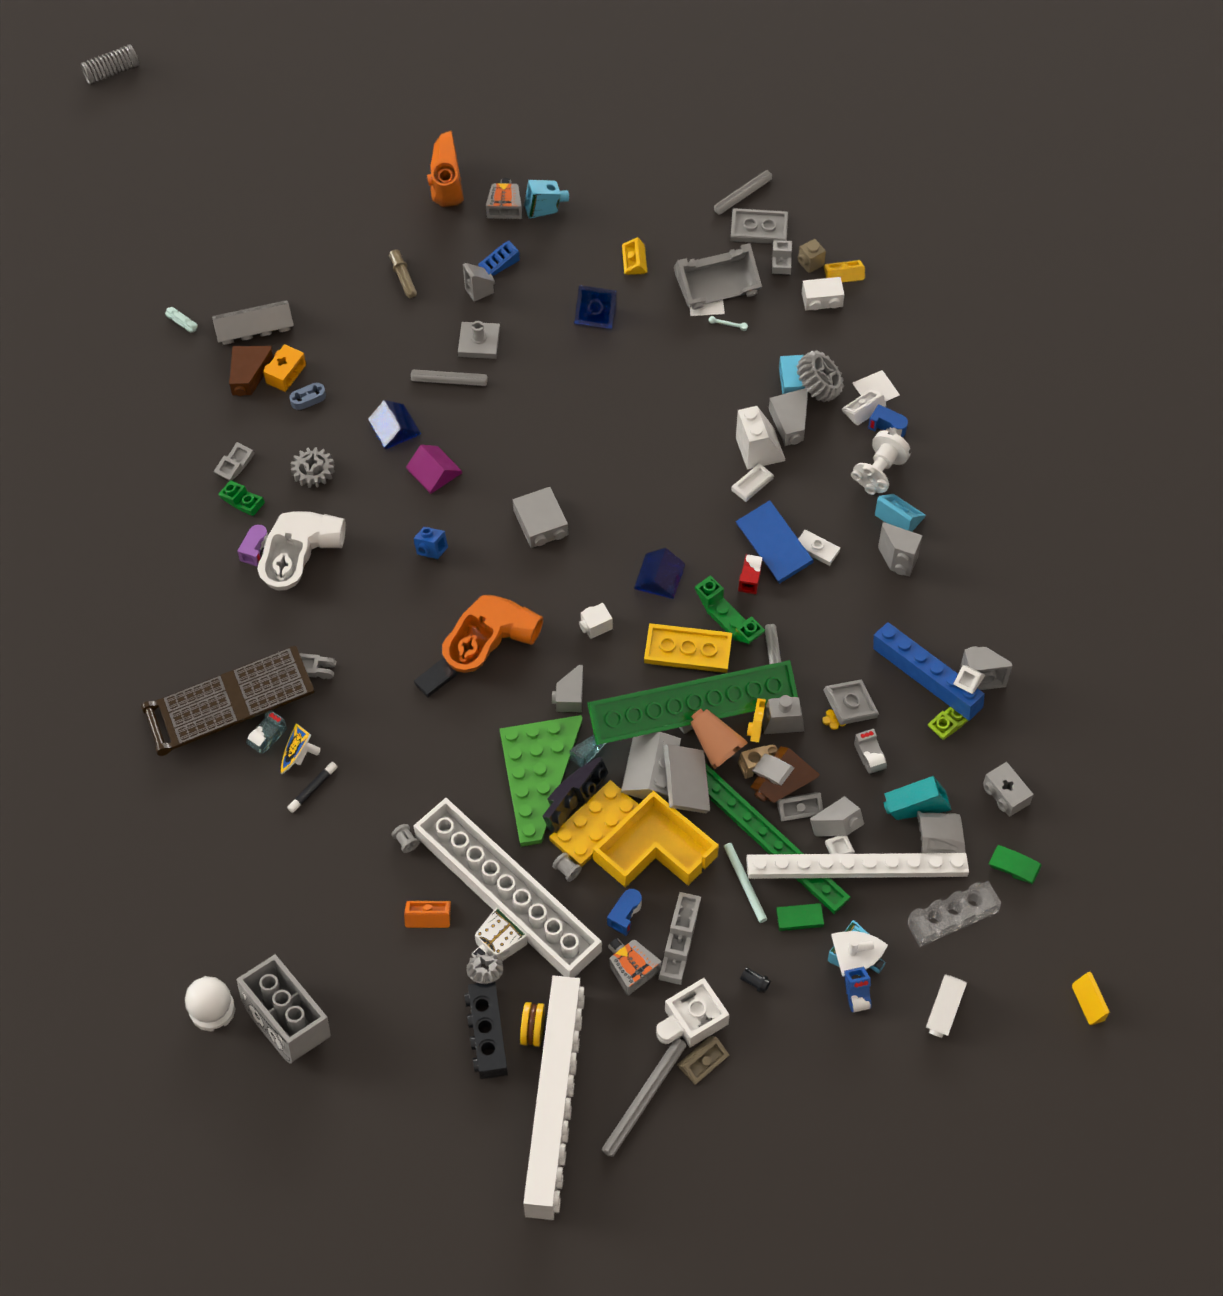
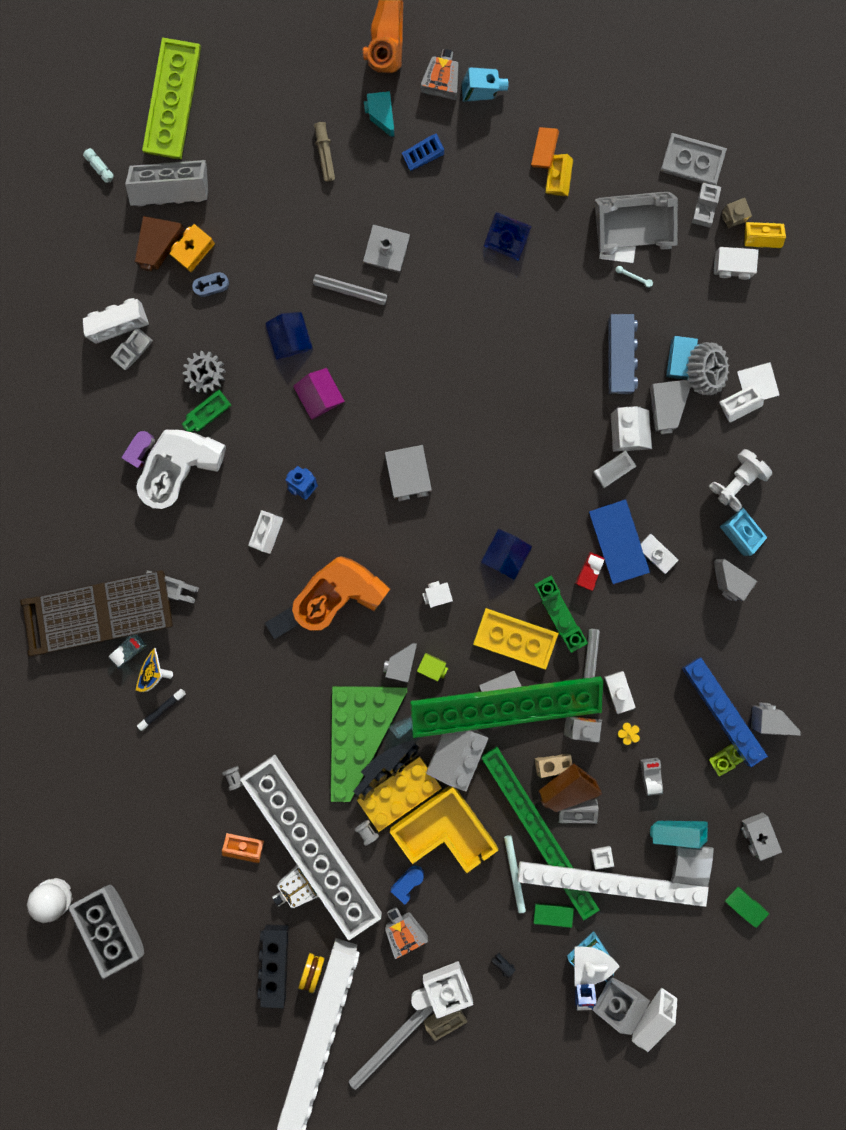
camera: 10 degrees right, 30 degrees up
(215, 439) = (114, 321): none -> white slope
(240, 498) = (133, 391): green slope -> none
(246, 257) = (171, 98): none -> lime plate
(323, 498) = (206, 412): none -> green hinge
(400, 598) = (265, 532): none -> white slope
(451, 234) = (380, 111): none -> teal slope
(477, 281) = (397, 180): light grey slope -> none
(480, 974) = (288, 924): light grey gear -> none
(604, 687) = (432, 667): none -> lime brick
(615, 238) = (545, 148): none -> orange tile
(680, 938) = (449, 915): light grey slope -> none
(686, 778) = (484, 780): light grey tile -> none
(716, 737) = (520, 747): nougat cone -> none
(732, 381) = (621, 354): none -> sand blue brick
(742, 192) = (687, 112): light grey axle -> none
(755, 727) = (557, 737): yellow wing -> none
(773, 769) = (561, 791): light grey slope -> none
(812, 679) = (620, 692): none -> white tile
(837, 819) = (608, 837): light grey slope -> none
(851, 702) = (647, 723): light grey plate -> none
(888, 421) = (761, 428): blue leg -> none
(904, 996) = (621, 1006): none -> light grey slope
(926, 931) = (712, 940): clear brick -> none
(968, 679) = (758, 742): white slope -> none
(1090, 999) = (774, 1037): yellow slope -> none

